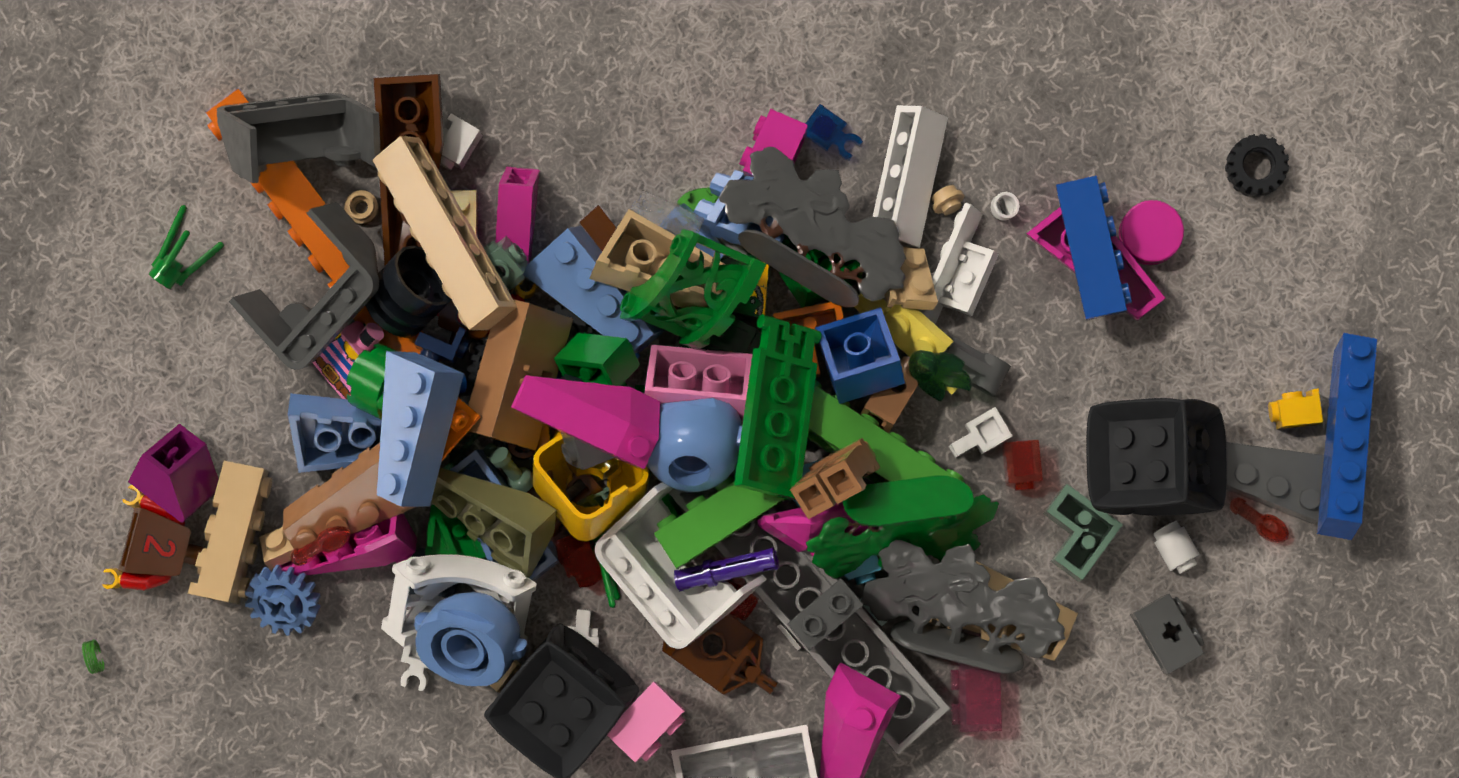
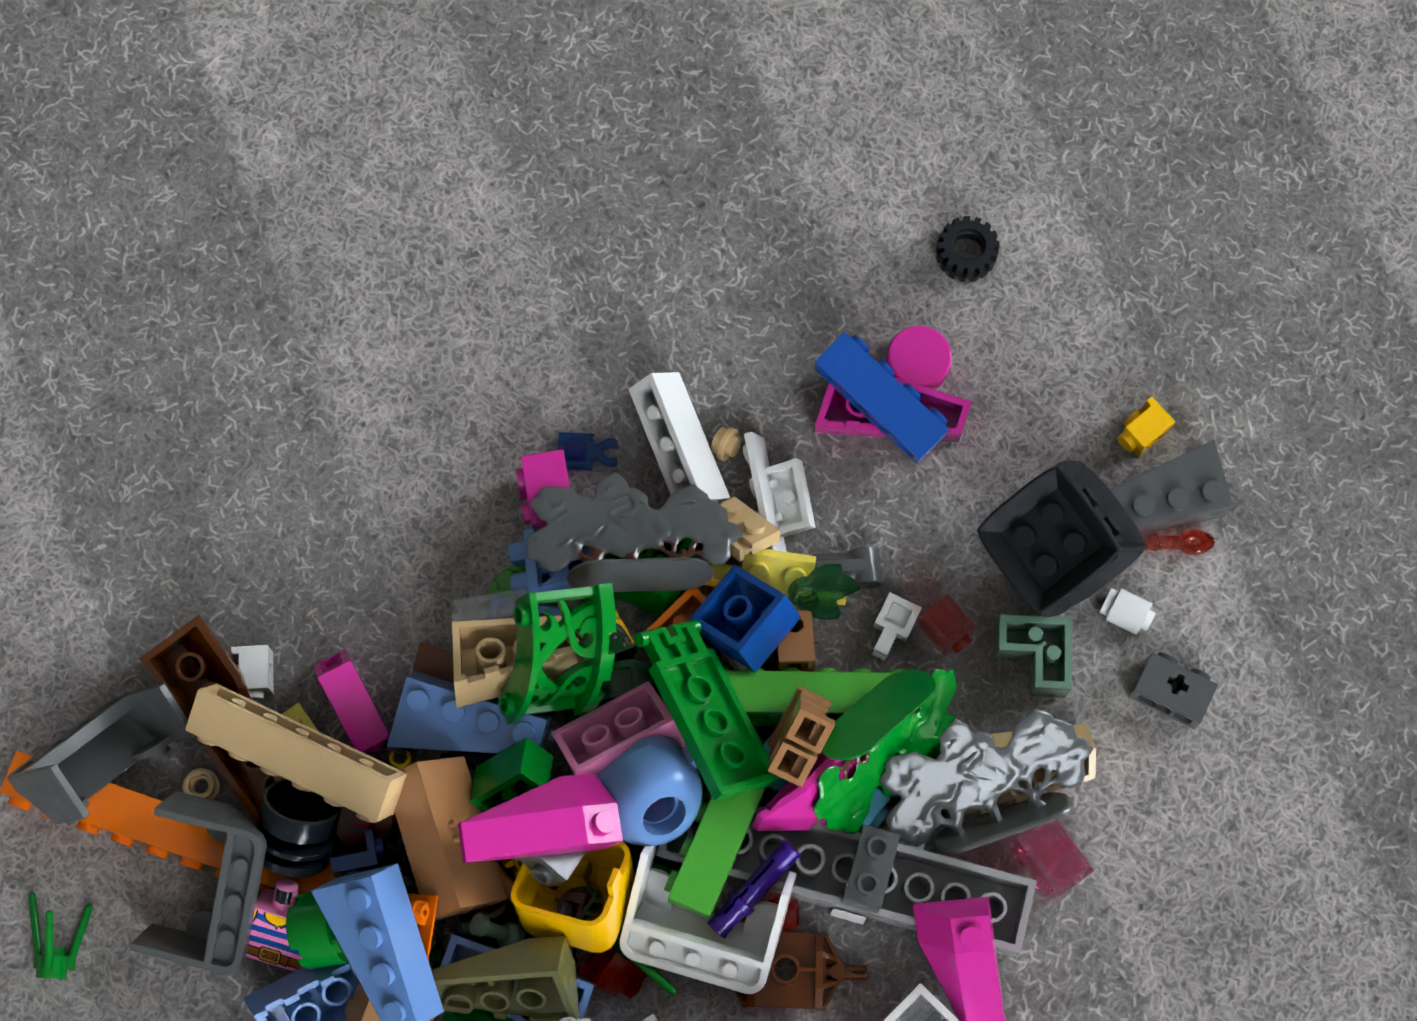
camera: 40 degrees left, 10 degrees down
(511, 258) = (371, 736): sand green brick -> none
(1009, 203) = (781, 413): white hinge -> none
(1347, 437) = (1207, 419): blue brick -> none

